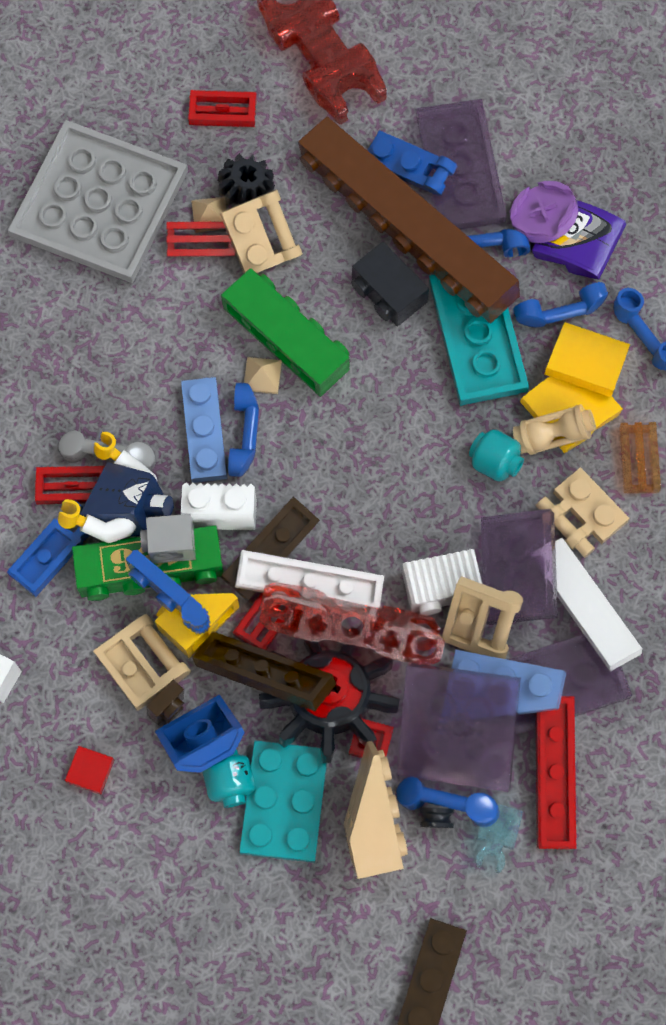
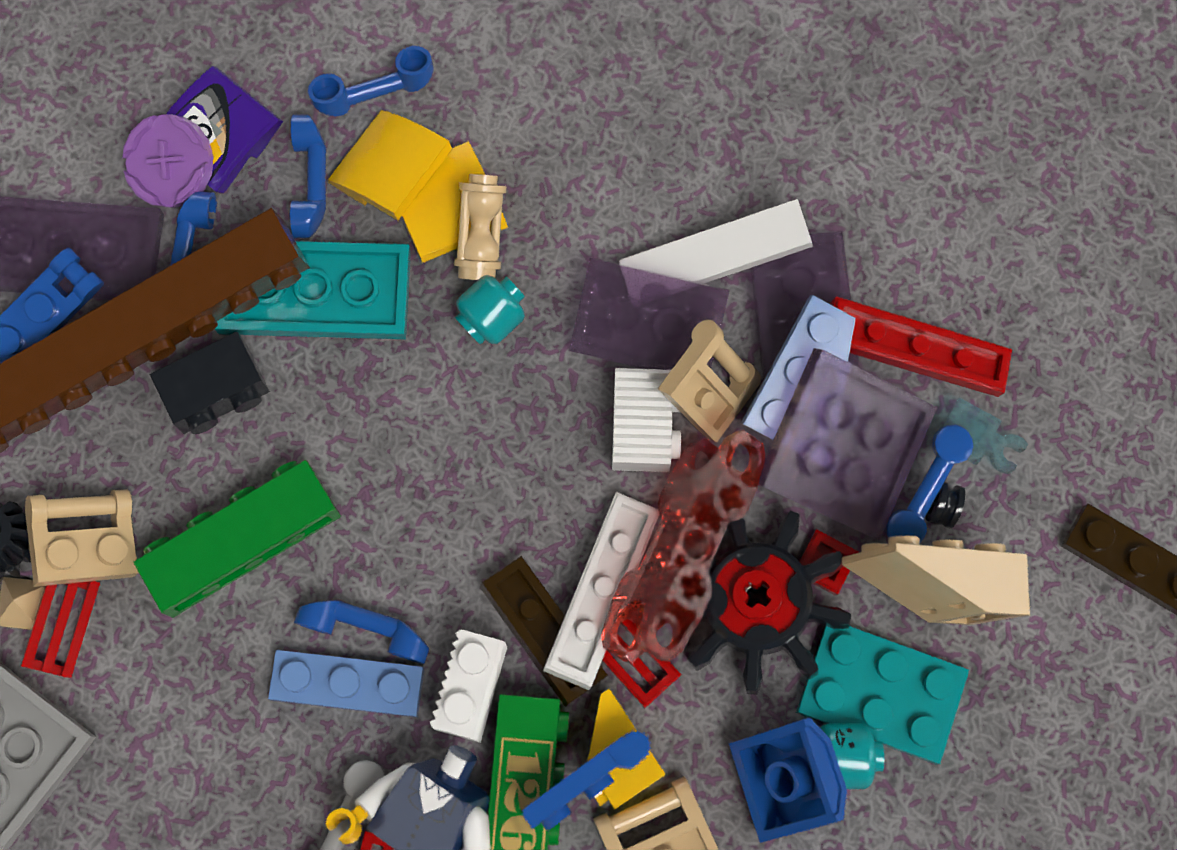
camera: 80 degrees left, 5 degrees up
(166, 703) = (735, 817): dark brown plate -> none
(169, 538) = (510, 762): light grey brick -> none
(263, 374) = (288, 585): tan slope -> none
(264, 671) = (720, 675): dark brown plate -> none
(590, 506) = (584, 216): tan plate -> none
(639, 429) = (539, 124): clear orange tile -> none

